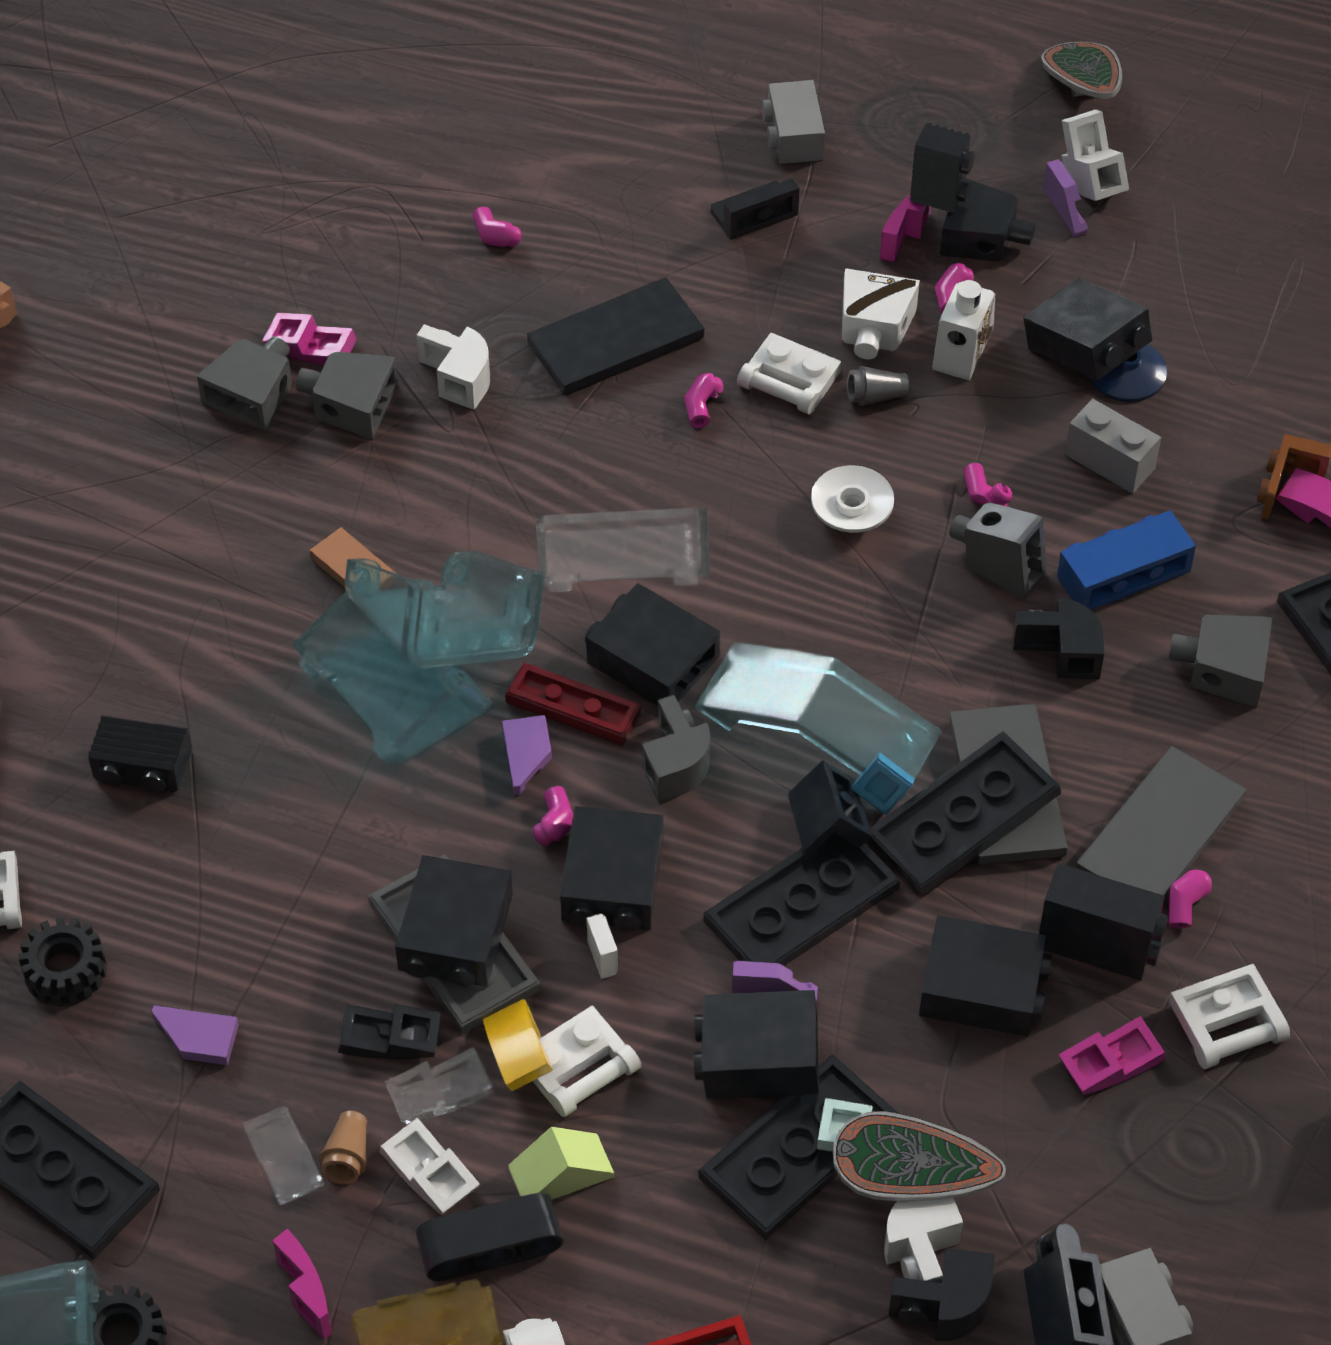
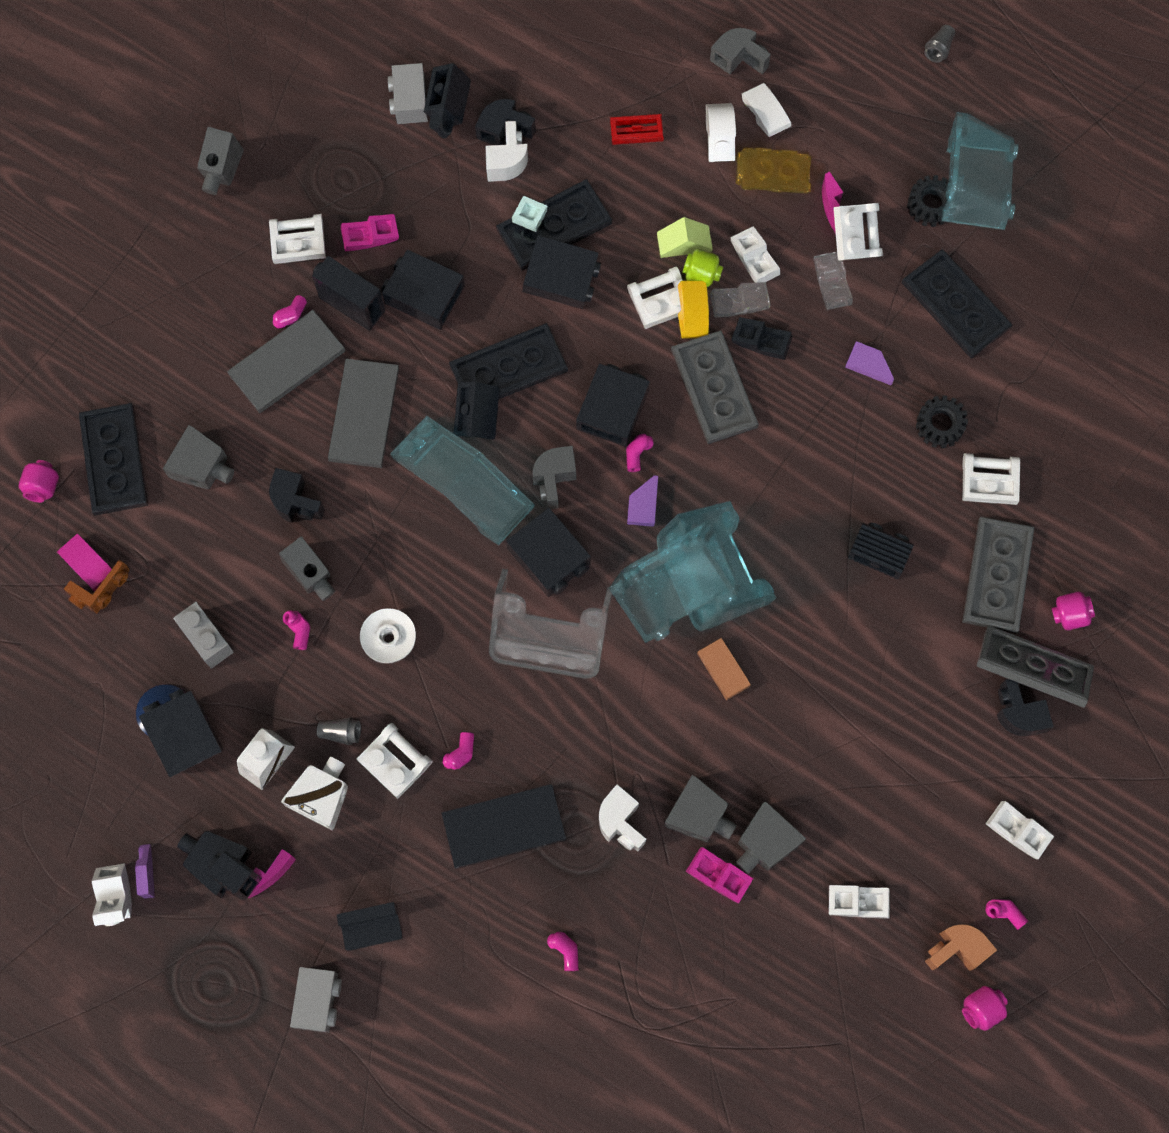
camera: 165 degrees left, 20 degrees up
(124, 348) = (859, 901): none -> white slope
(263, 1218) = (851, 232): none -> white plate
(345, 1149) = (798, 273): medium nougat cone -> none
(454, 921) = (713, 381): black brick -> none
(489, 1237) = (732, 206): black beam -> none
(516, 1111) = (702, 267): none -> lime head
(573, 703) = (607, 531): dark red tile -> none
(602, 946) = (631, 356): white tile -> none
(765, 977) = (542, 313): medium lavender tile -> none
(882, 783) = (439, 418): dark azure tile -> none
(911, 1159) = (501, 181): shield -> none
(944, 287) = (257, 812): dark pink arm -> none
(963, 813) = (397, 391): black tile -> none
(1085, 68) = (77, 997): shield -> none
(1126, 560) = (231, 545): blue brick -> none

